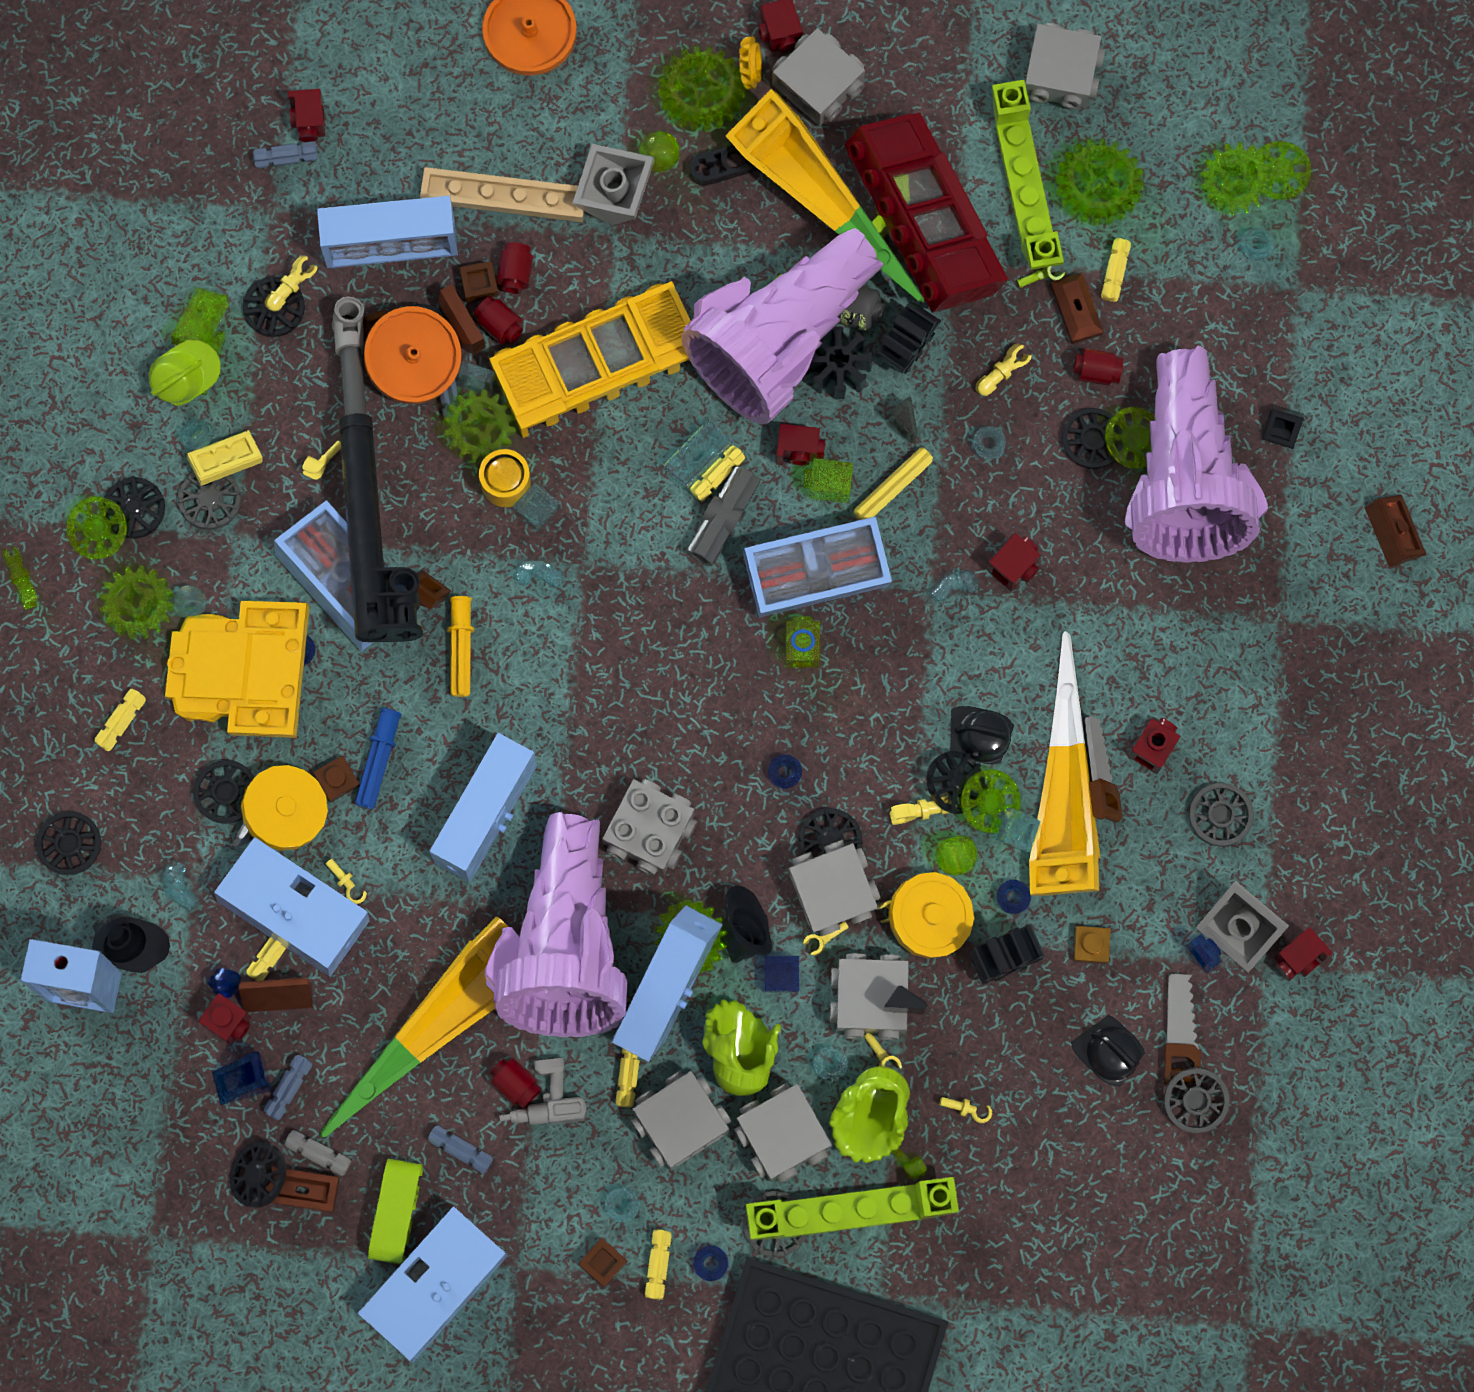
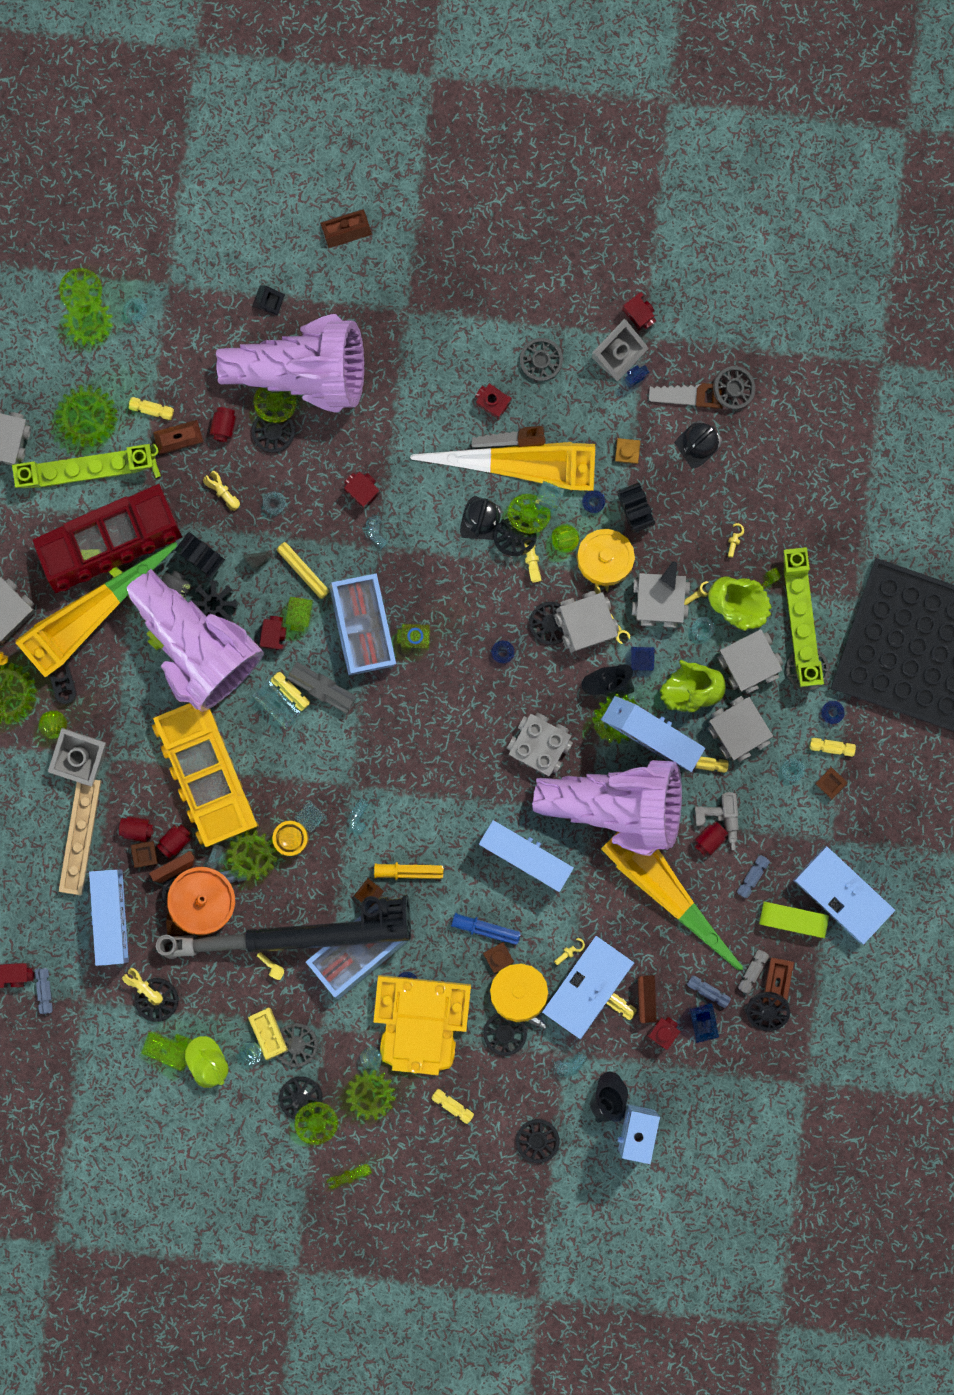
camera: 85 degrees left, 10 degrees up
(225, 982) = (638, 1033): clear blue plate -> none

